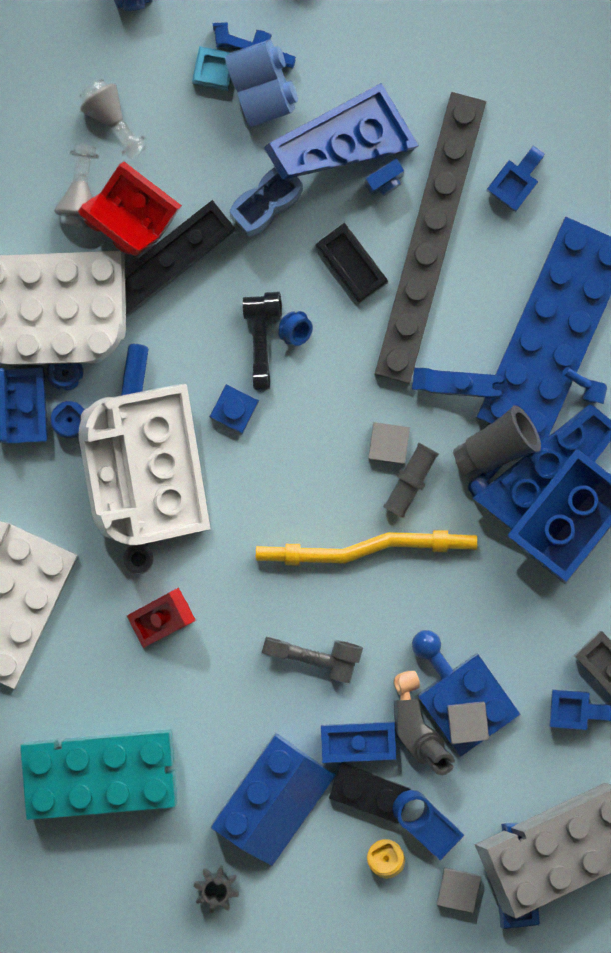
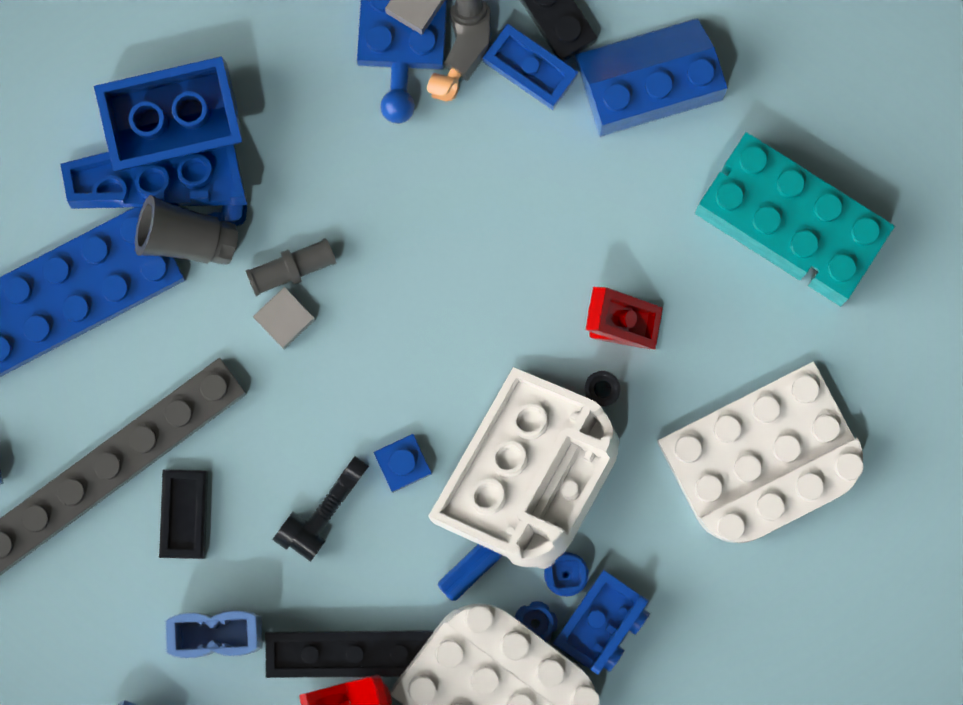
camera: 140 degrees left, 5 degrees down
(214, 899) = (775, 29): dark grey gear -> none
(295, 328) = (285, 492): blue plate -> none
(340, 662) = (489, 152): dark grey brick -> none
(345, 135) = (88, 636): wing -> none
(385, 179) = (87, 566): blue plate -> none
(439, 542) = (311, 193): yellow bar -> none
(456, 383) = (176, 322): blue piece -> none
(594, 390) = (57, 218): blue hand -> none

